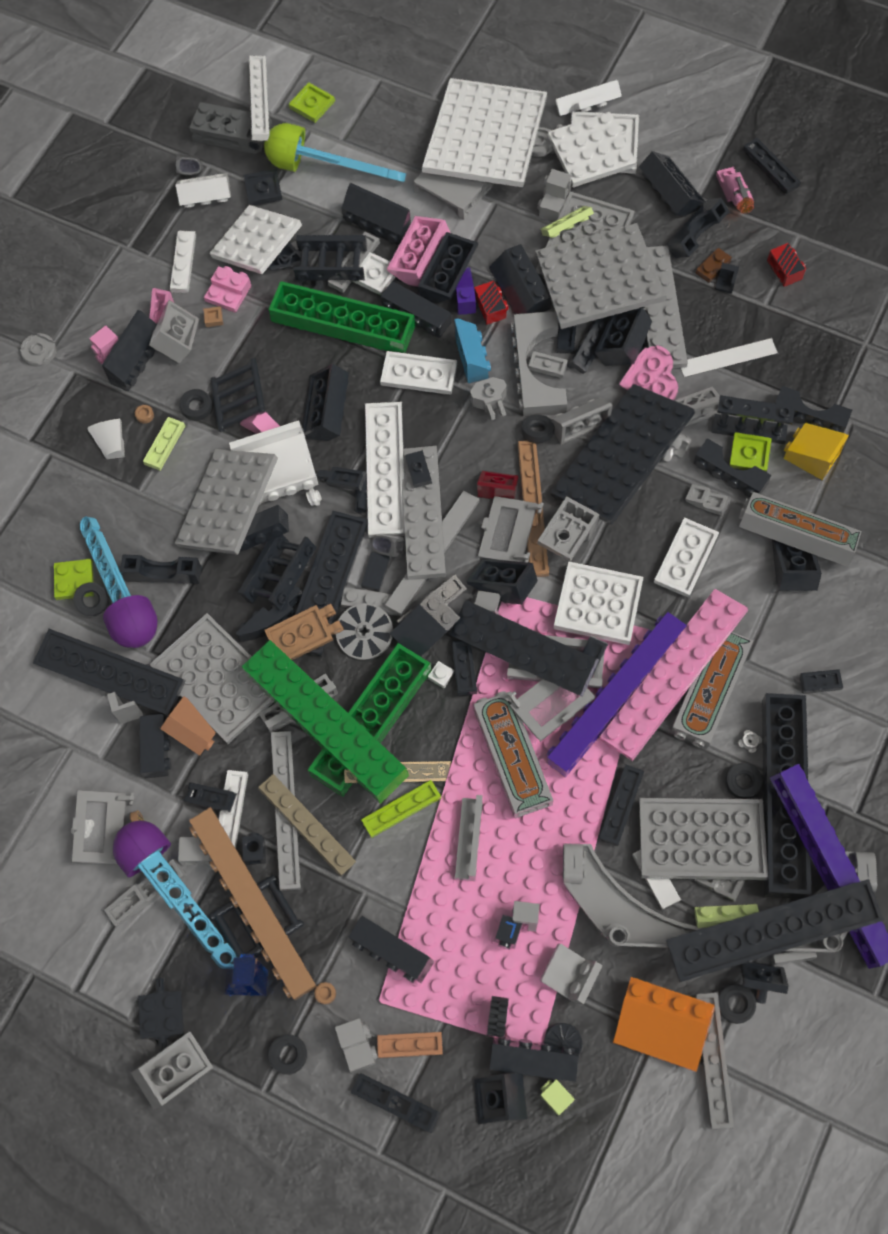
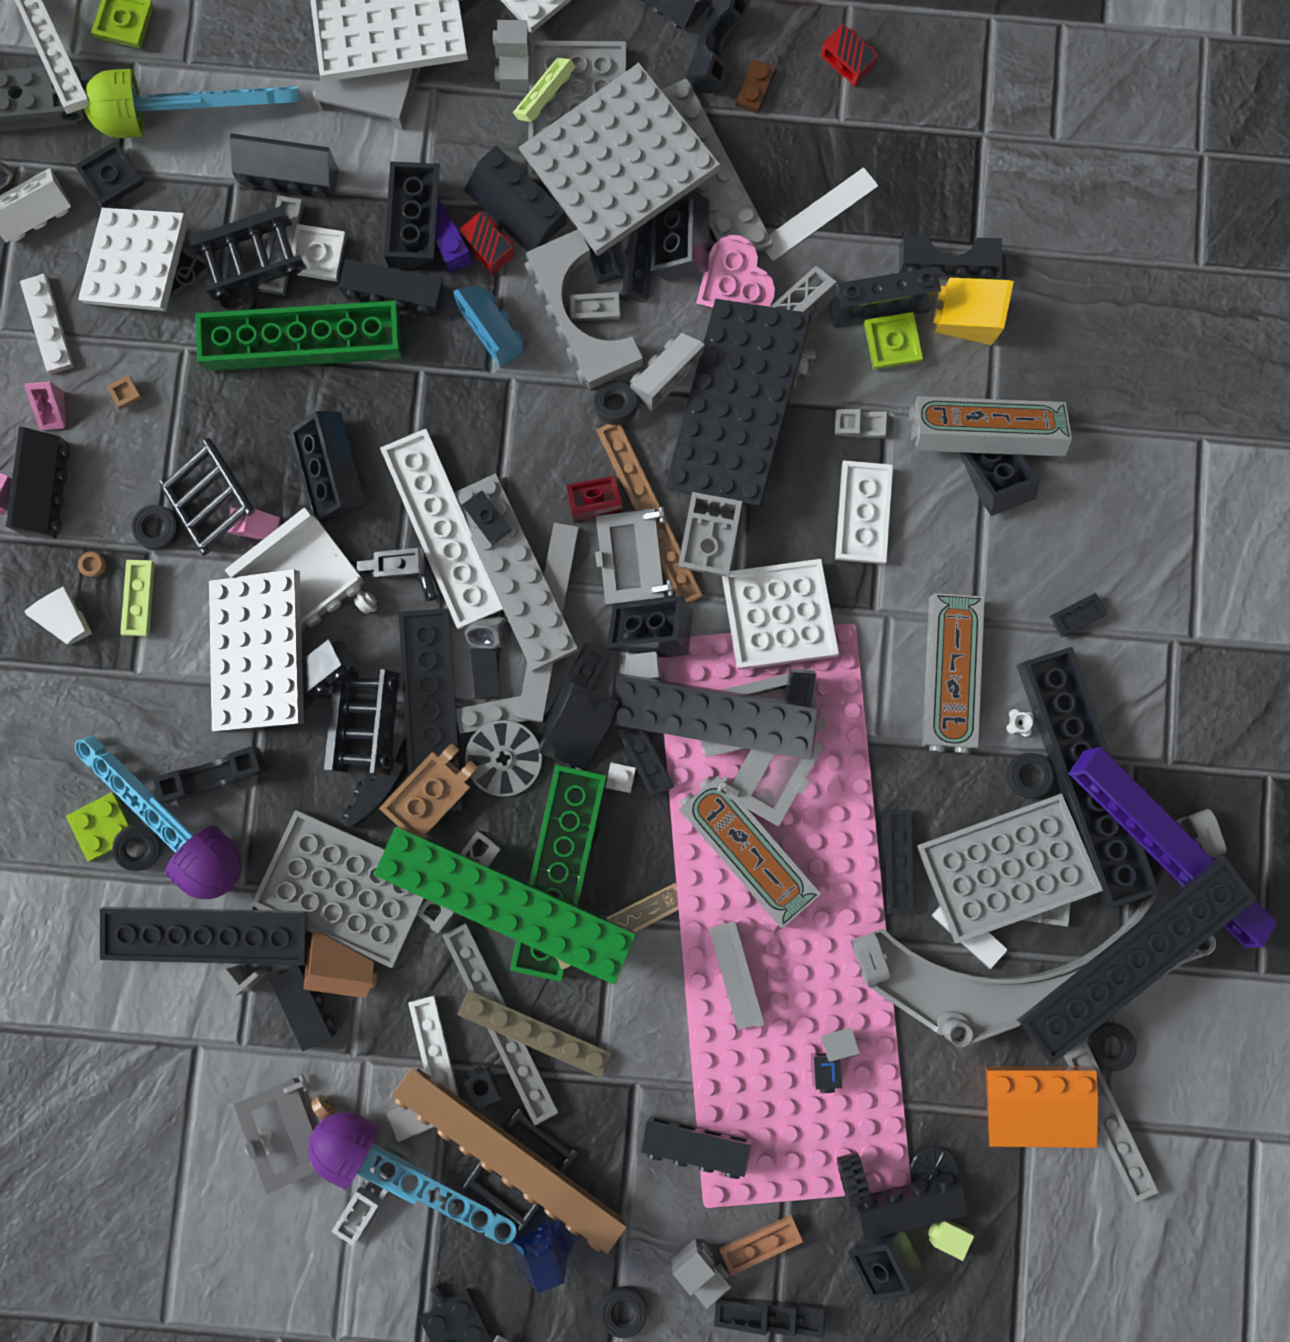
camera: 30 degrees left, 15 degrees up
(174, 332) = (82, 436): light grey slope -> none
(210, 797) = (401, 1047): black plate -> none
(228, 288) = (126, 344): bright pink plate -> none
(325, 993) = (638, 1223): medium nougat tile -> none
(401, 809) = (639, 967): lime plate -> none
(417, 249) = (361, 198): bright pink slope -> none
(418, 372) = (431, 377): white plate -> none
(489, 397) = (540, 382): light grey hinge -> none
(570, 974) = (917, 1091): light grey bracket -> none
(613, 697) = (845, 726): dark purple brick -> none
(673, 674) = (905, 675): bright pink plate -> none
(715, 915) = (1067, 949): yellowish green plate -> none
(727, 278) = (780, 100): black panel -> none
(748, 481) = (848, 367): black arch -> none
(764, 979) = (1142, 1013): black tile -> none

